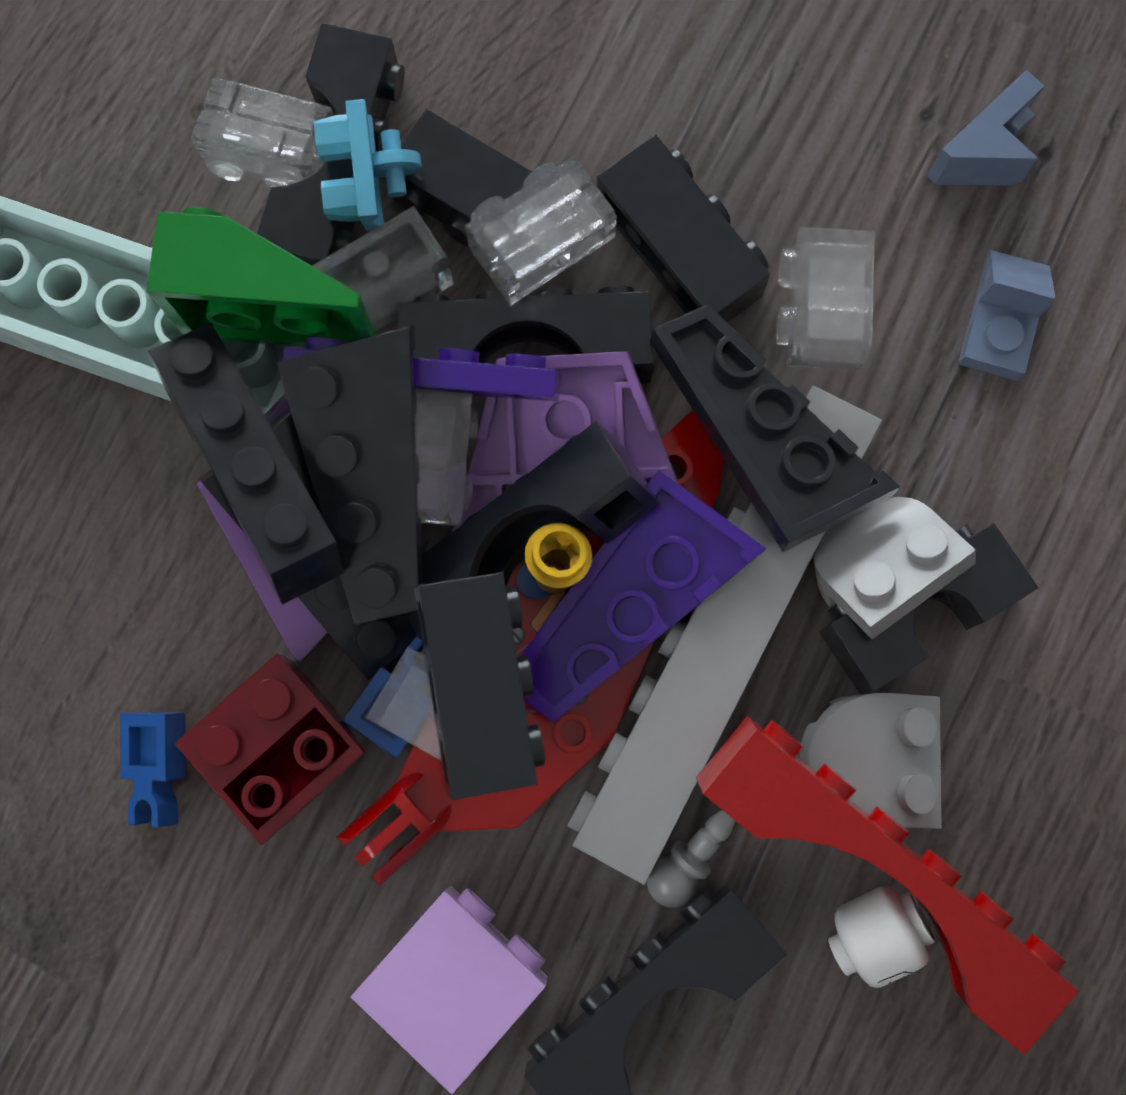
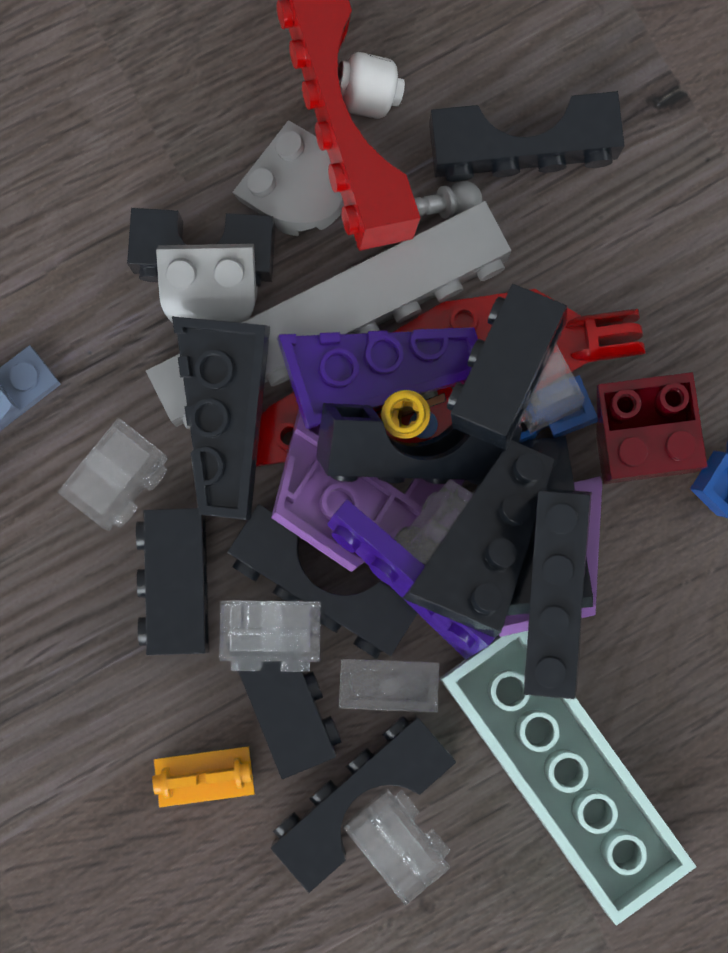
camera: 150 degrees left, 5 degrees up
(245, 285) = (490, 712): green slope -> none
(353, 138) = (368, 740): medium azure hips -> none
(452, 986) = (631, 224): lavender piece -> none
(513, 76) = (203, 777): none -> light orange hinge

